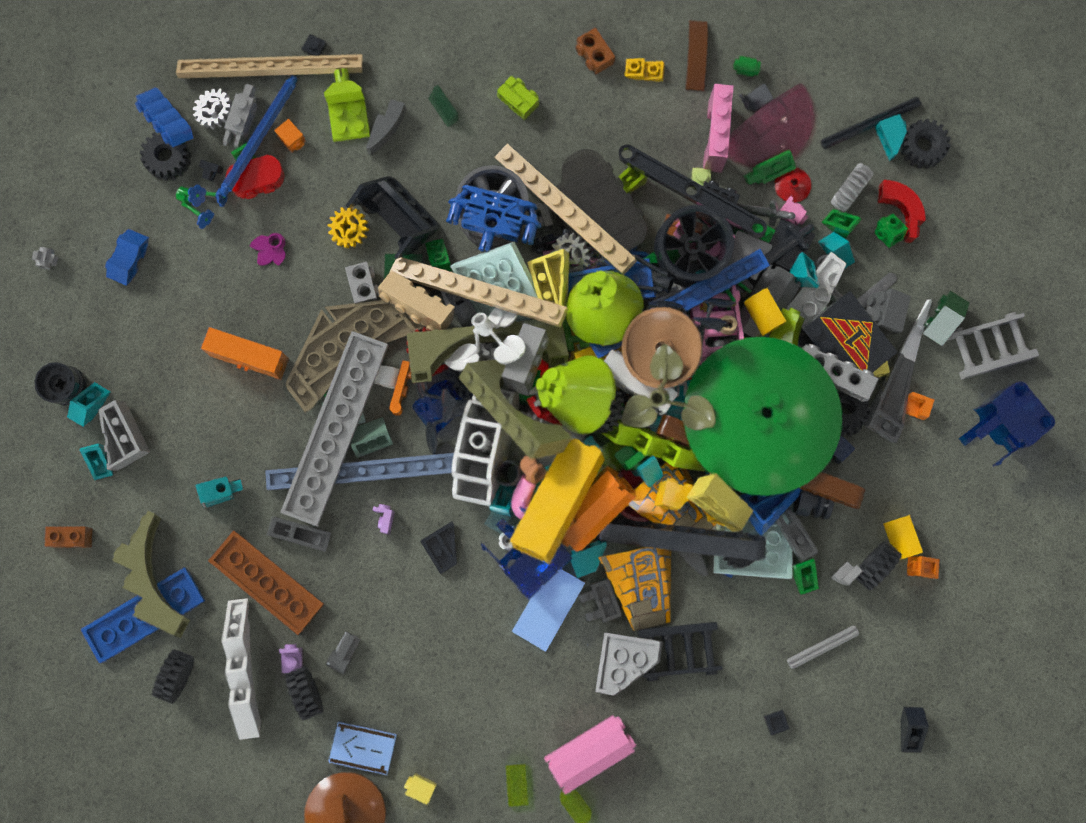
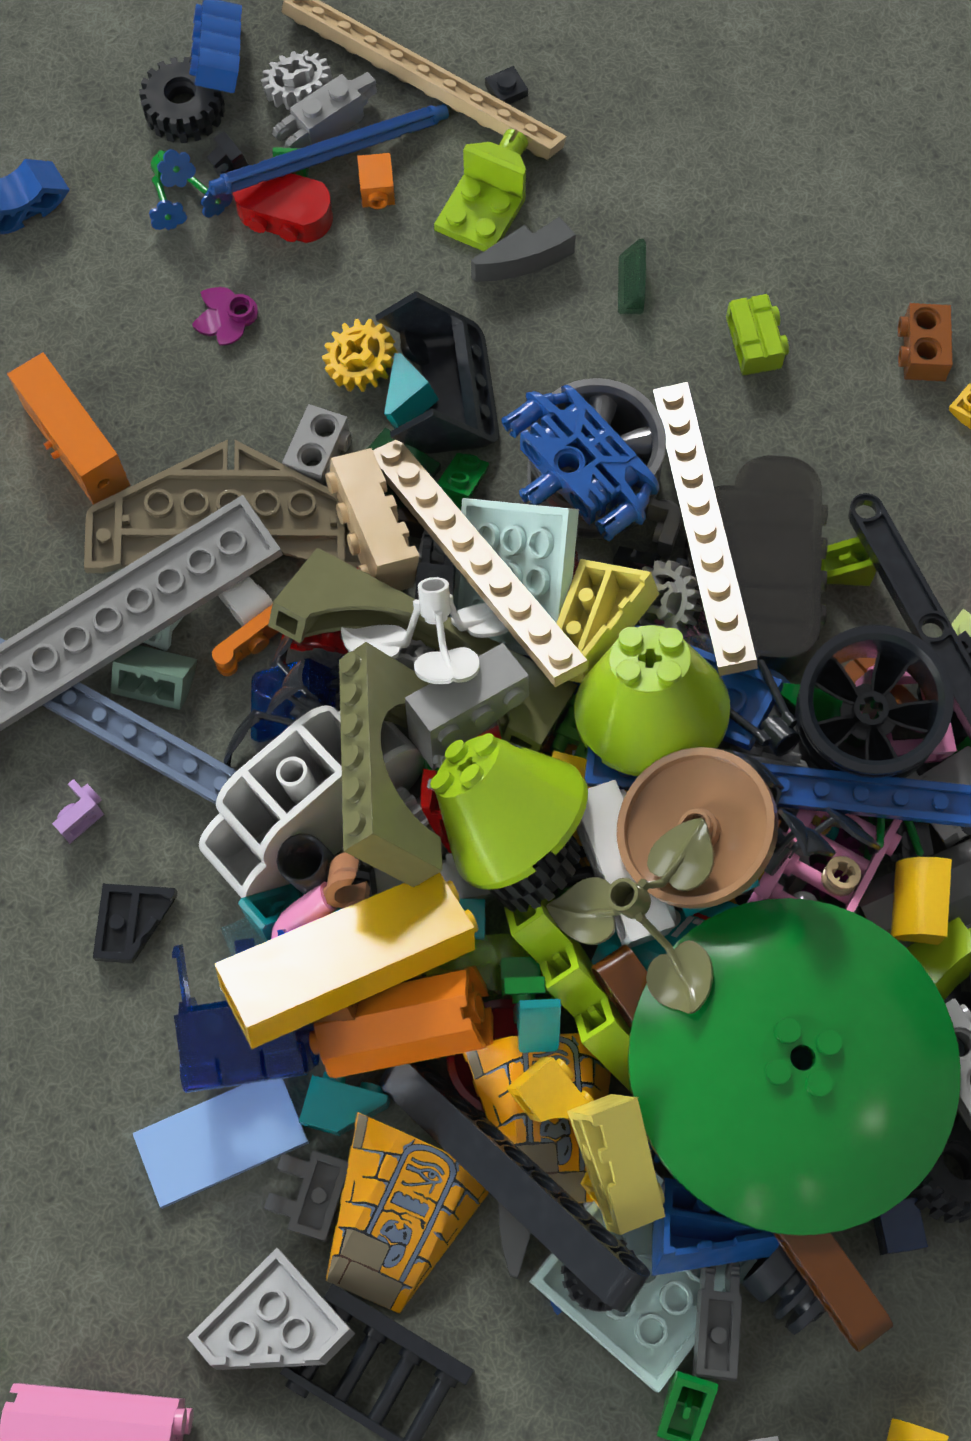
camera: 40 degrees right, 10 degrees down
(384, 230) = (407, 393): none -> teal slope

